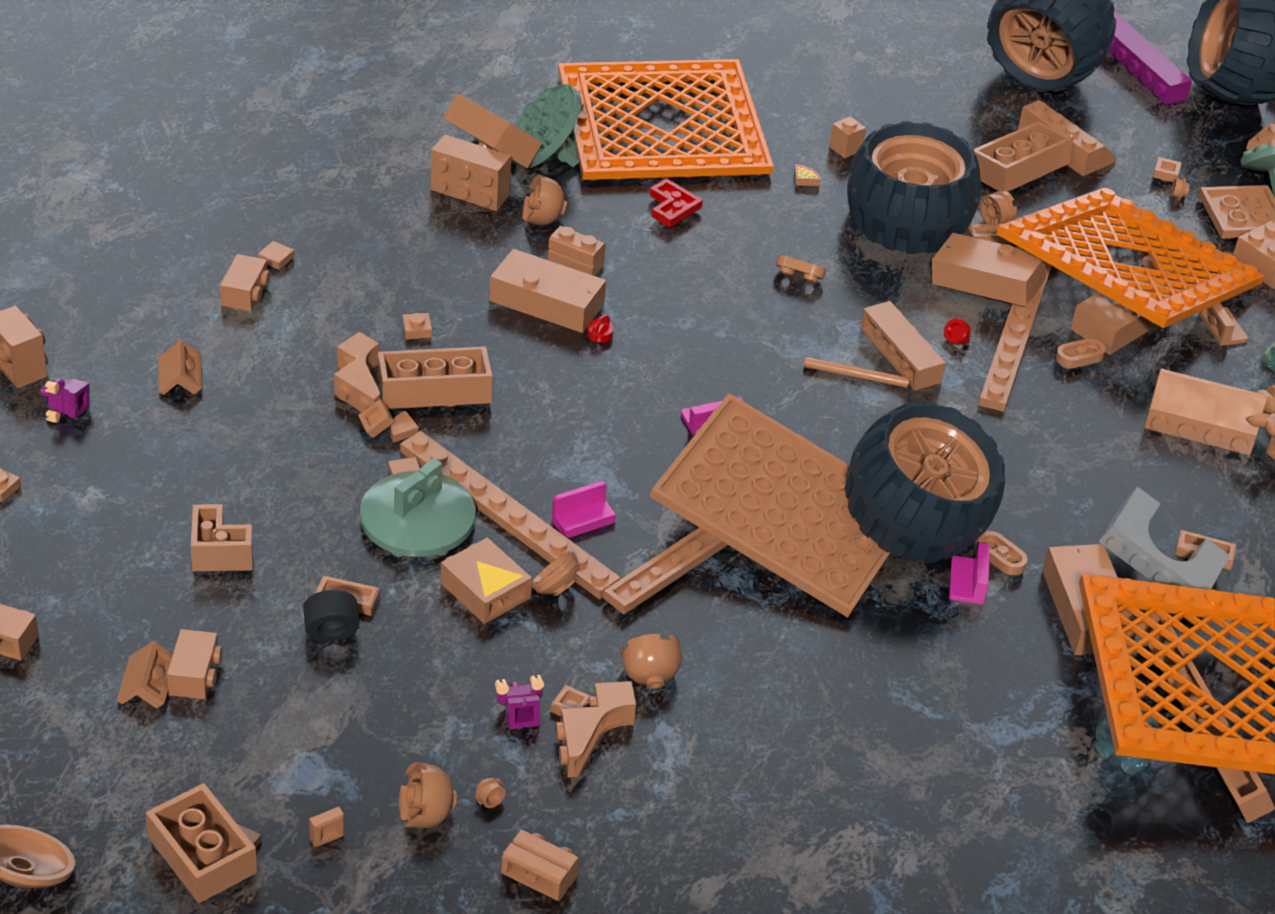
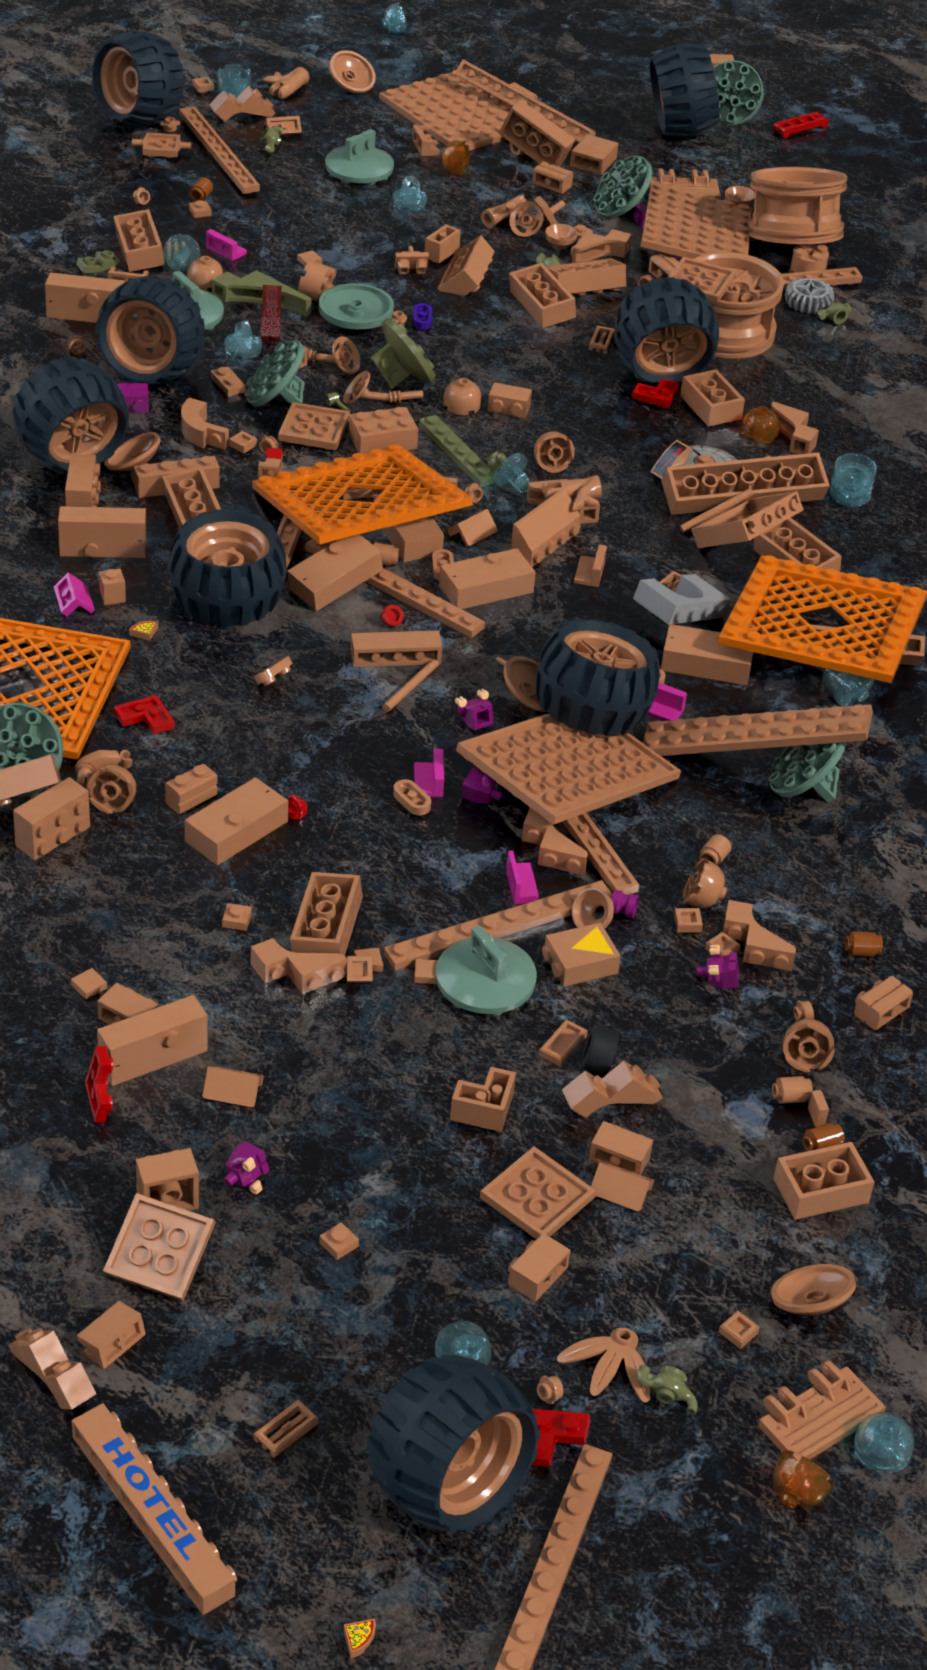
camera: 70 degrees left, 0 degrees up
(106, 612) = (537, 1194): none -> nougat plate
(136, 283) = (97, 1084): none -> red plate
(200, 298) = (155, 1039): none -> nougat brick
(279, 839) = (823, 1136): none -> dark orange brick
(280, 640) = (621, 1085): none -> nougat arch
(350, 797) = (792, 1089): none -> nougat brick
(579, 186) = (92, 762): none -> nougat arm
(588, 600) = (625, 903): none -> magenta wheel
(593, 662) = (688, 920): none -> nougat plate
(638, 831) = (864, 944): none -> dark orange brick
(646, 528) = (555, 848): none -> nougat arch
(666, 405) = (412, 797): none -> nougat plate
(726, 664) = (716, 849): none -> nougat brick
(820, 121) = (71, 594): none -> dark pink panel
(837, 424) = (476, 712): none -> magenta piece
(914, 98) = (102, 532): none -> nougat brick
(928, 726) = (807, 767): none -> sand green bracket
(934, 646) = (759, 730): none -> nougat plate
(975, 79) = (82, 481): none -> nougat brick
(1059, 305) = (389, 553): none -> nougat brick
(1070, 103) = (134, 452): none -> nougat dish
(1079, 388) = (487, 578): none -> nougat brick
(1148, 197) = (273, 463): none -> nougat leg
(1165, 358) = (474, 528): none -> nougat panel
(1167, 128) = (197, 430): none -> nougat arch
(1183, 475) = (590, 568): none -> nougat panel
(1232, 355) = (474, 491): none -> nougat plate

